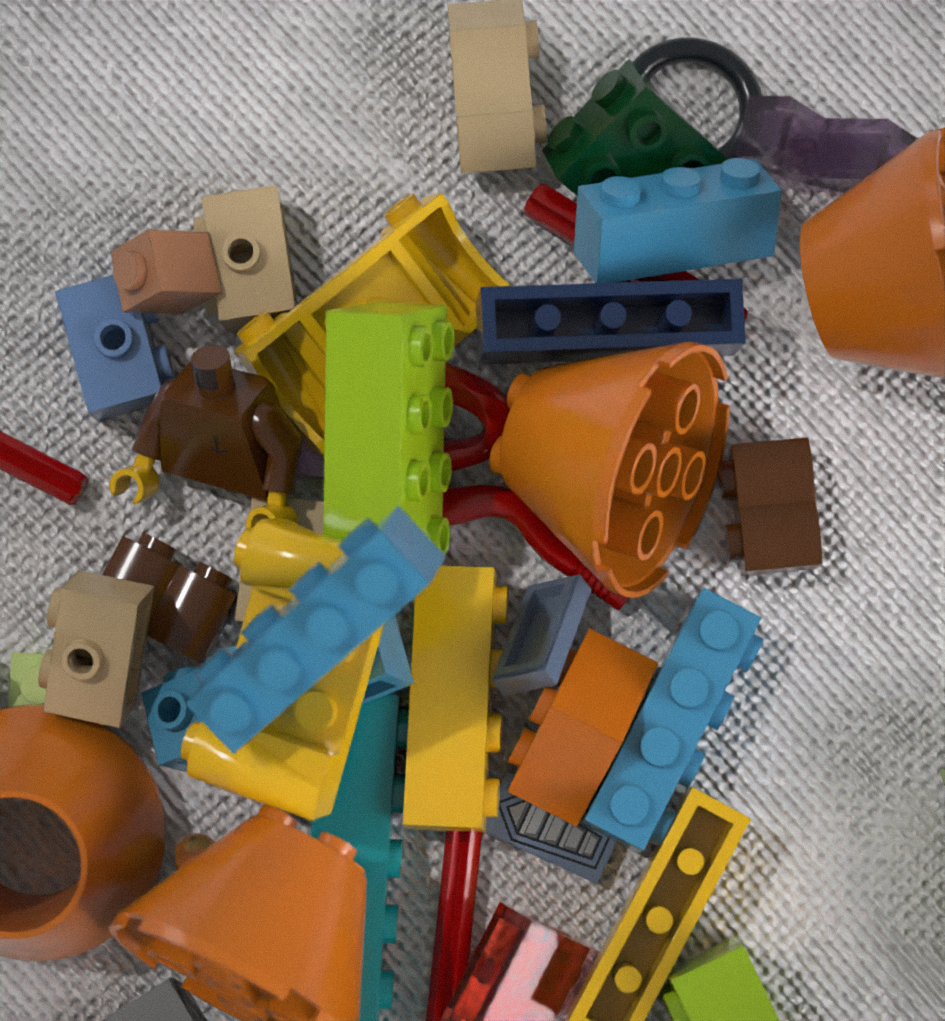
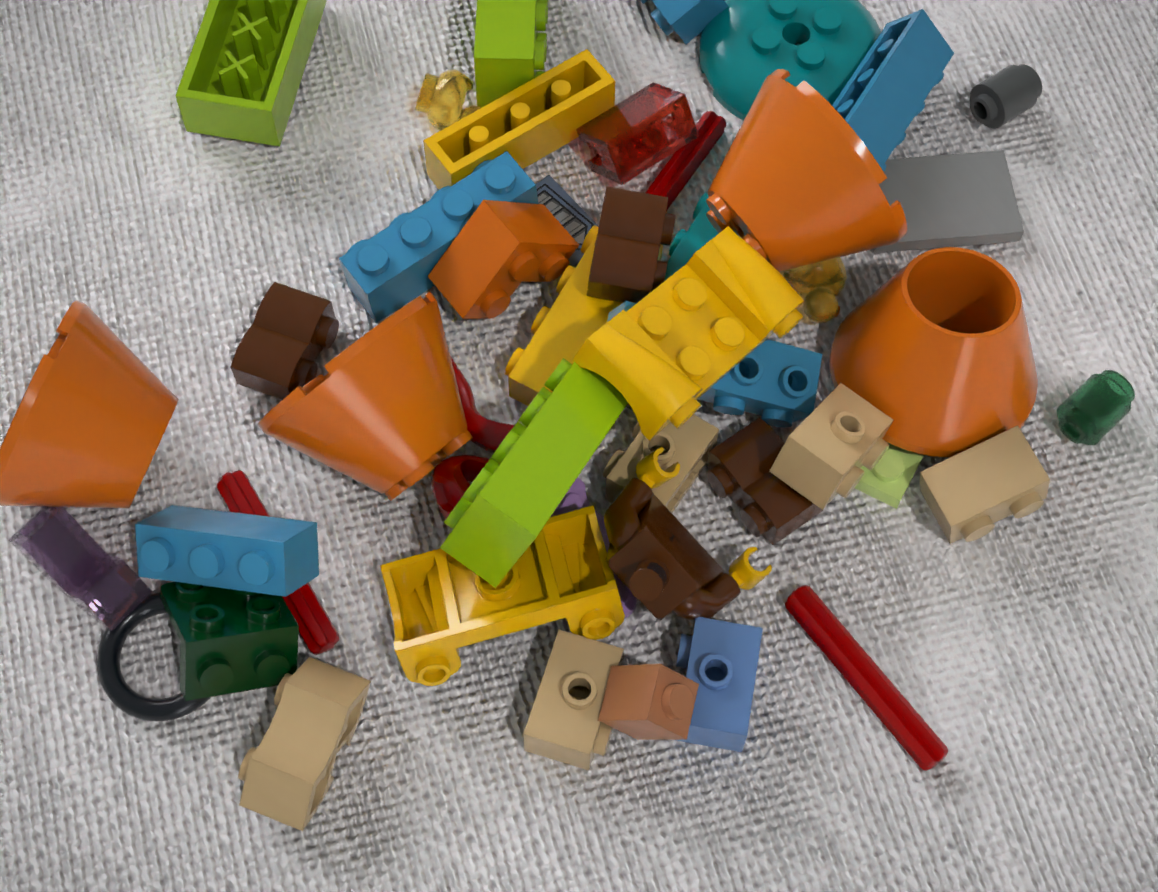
camera: 160 degrees left, 20 degrees down
(316, 629) = (660, 305): dark azure brick -> none
(428, 776) = (628, 245): none -> reddish brown brick
(541, 635) = (499, 321): sand blue tile -> none
(606, 319) = (324, 489): dark blue brick -> none
(773, 918) = (444, 98): none -> clear yellow animal

